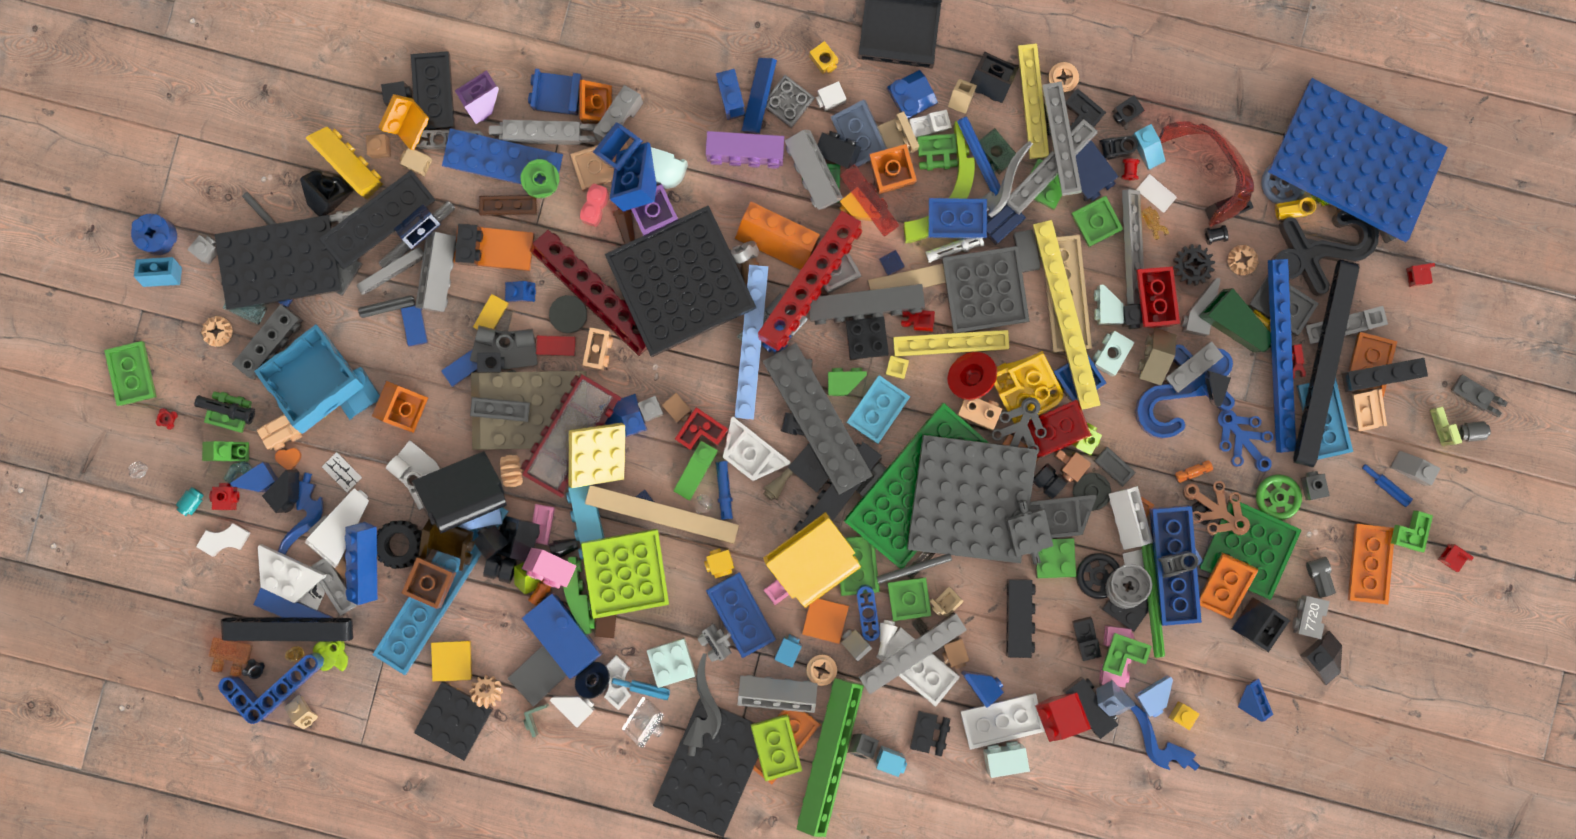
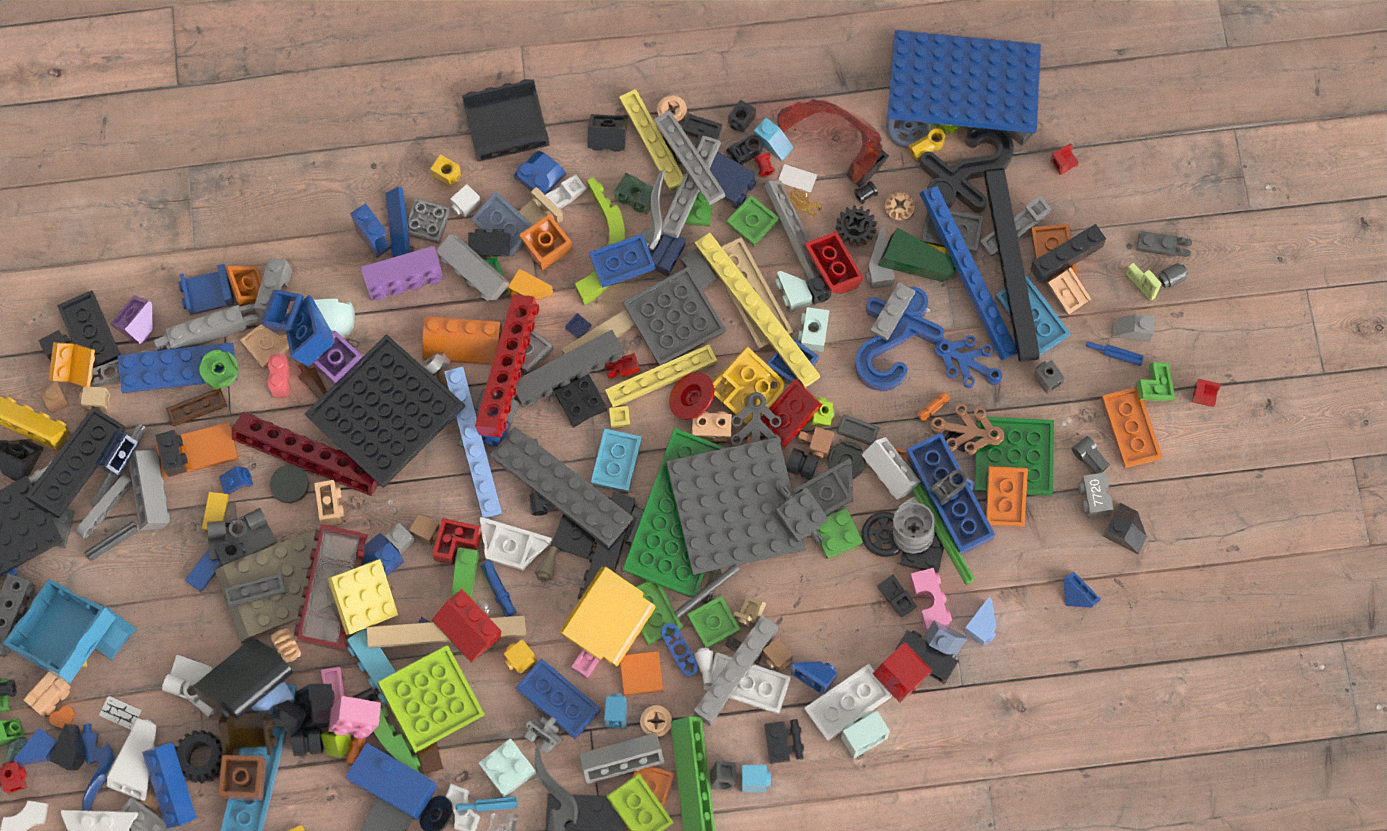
camera: 20 degrees left, 15 degrees down
(399, 406) = (156, 627): orange slope -> none
(414, 326) = (144, 549): blue tile -> none
(556, 345) = (288, 516): red tile -> none
(681, 519) = (466, 625): none -> red slope
(842, 383) = (574, 447): bright green slope -> none
(855, 644) = (679, 682): light grey slope -> none
(869, 200) = (535, 276): clear red bracket -> none
(937, 145) = (580, 208): bright green plate -> none
(962, 96) = (585, 157): tan brick -> none
(965, 246) = (640, 286): white pin -> none
(979, 154) = (620, 200): blue axle -> none
(1019, 618) = (825, 600): black brick -> none
(1121, 649) = (931, 586): bright green plate -> none
(1159, 356) = (856, 313): dark tan brick -> none
(1170, 752) = (1012, 678): blue piece -> none
(1184, 715) = (1017, 630): yellow brick -> none
(1216, 387) = (917, 316): black tile -> none
(1260, 624) = (1052, 519): black slope -> none
(1277, 480) = (1032, 389): bright green plate -> none
(1298, 360) = (985, 272): red plate -> none

